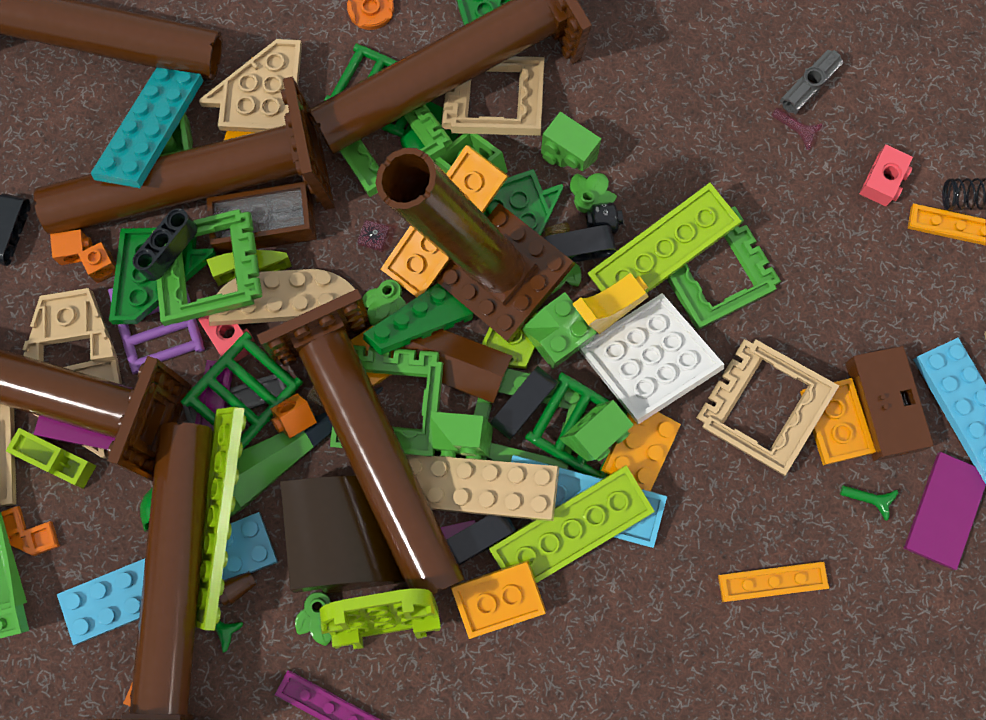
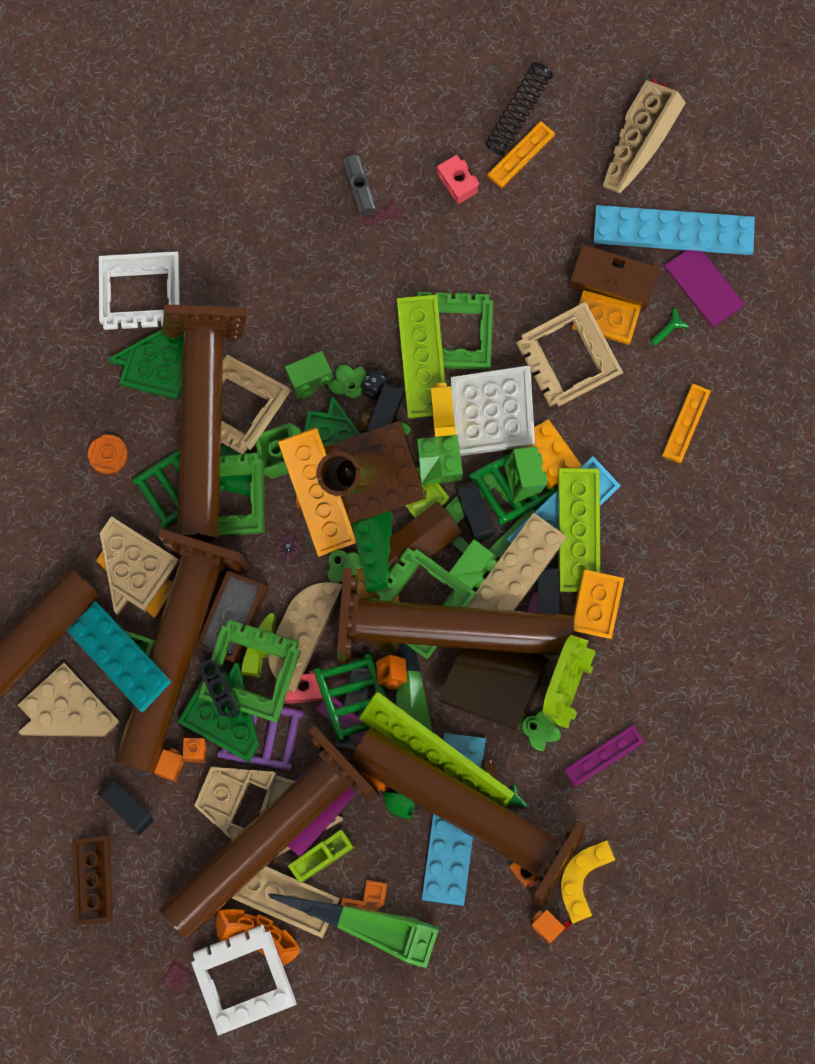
camera: 55 degrees left, 0 degrees up
(82, 115) = (65, 708): none -> tan wing

